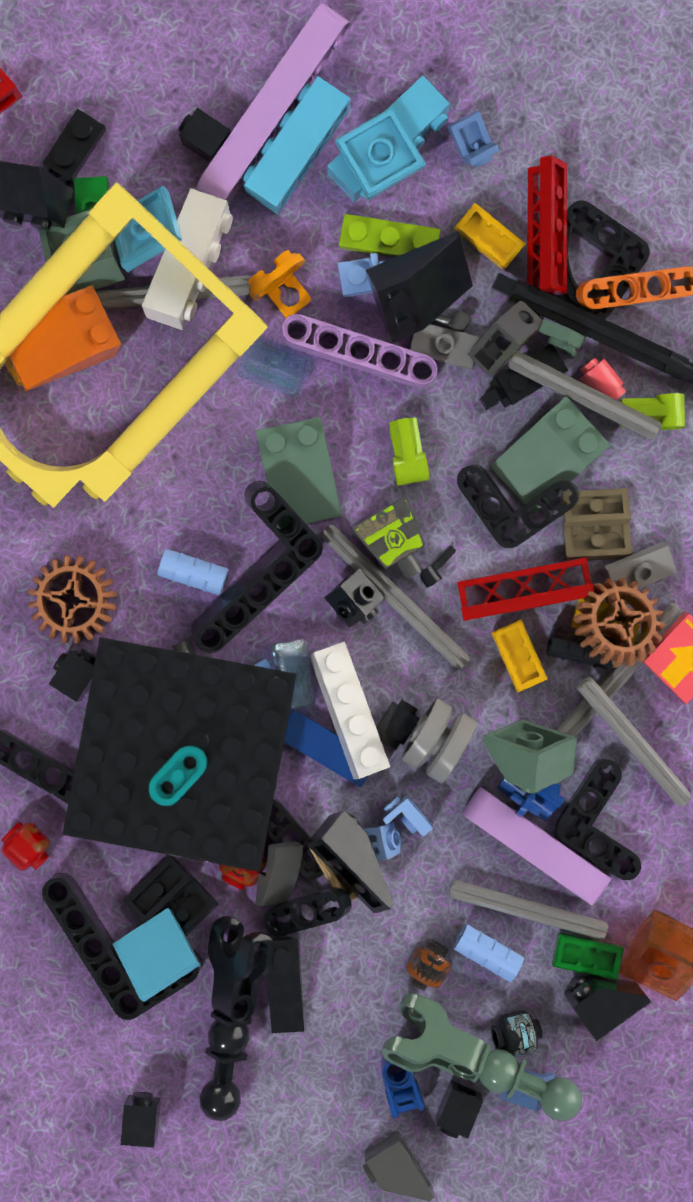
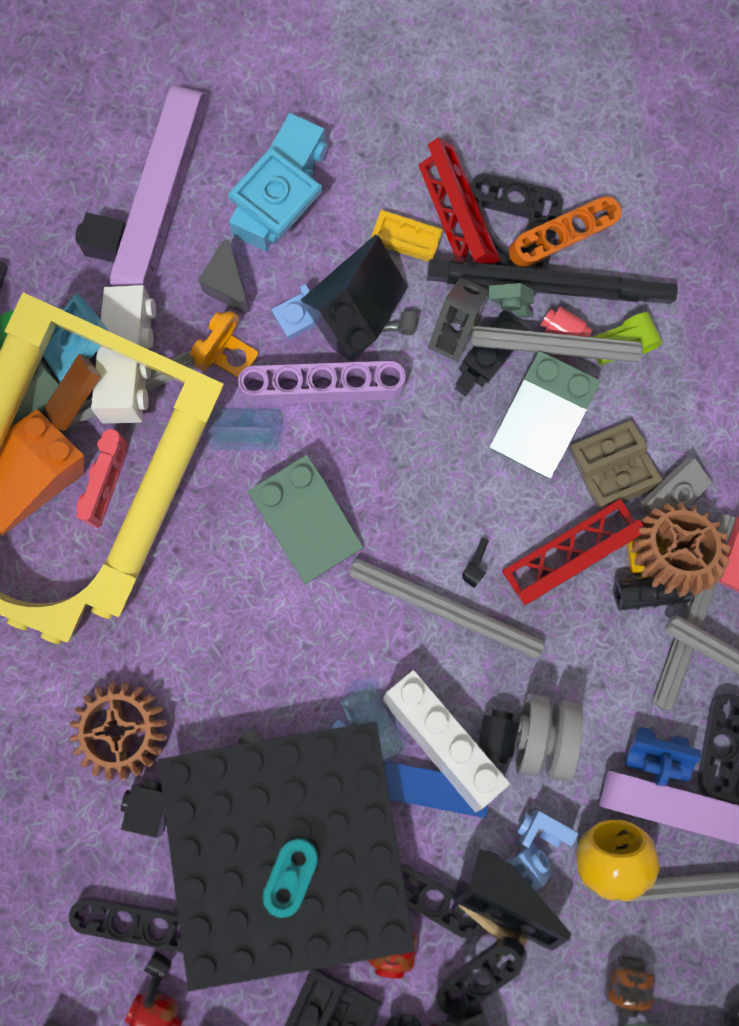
camera: 20 degrees left, 10 degrees down
(41, 807) = (157, 969): none -> black hand
(129, 282) = (72, 392): none -> dark orange tile
(131, 368) = (103, 478): none -> coral hinge
(192, 572) = (233, 657): light blue axle -> none
(260, 573) = (304, 630): black beam -> none
(280, 875) = (438, 945): dark grey slope -> none
(296, 145) = (193, 216): medium azure brick -> none
(303, 218) = (222, 279): none -> dark grey slope
(355, 598) = (407, 623): black brick -> none
(383, 236) = (288, 274): lime plate -> none
(393, 537) = (422, 548): torso -> none
(408, 461) = (409, 468): lime piece -> none
(445, 345) = (405, 348): light grey plate -> none
(448, 865) = (617, 871): none -> yellow piece
(472, 139) = (357, 156): medium blue bracket -> none
(488, 953) = (687, 948): light blue axle -> none
(507, 515) = (525, 486): black beam -> none
(519, 655) = (592, 621): yellow plate -> none
(531, 754) = (649, 716): sand green slope -> none

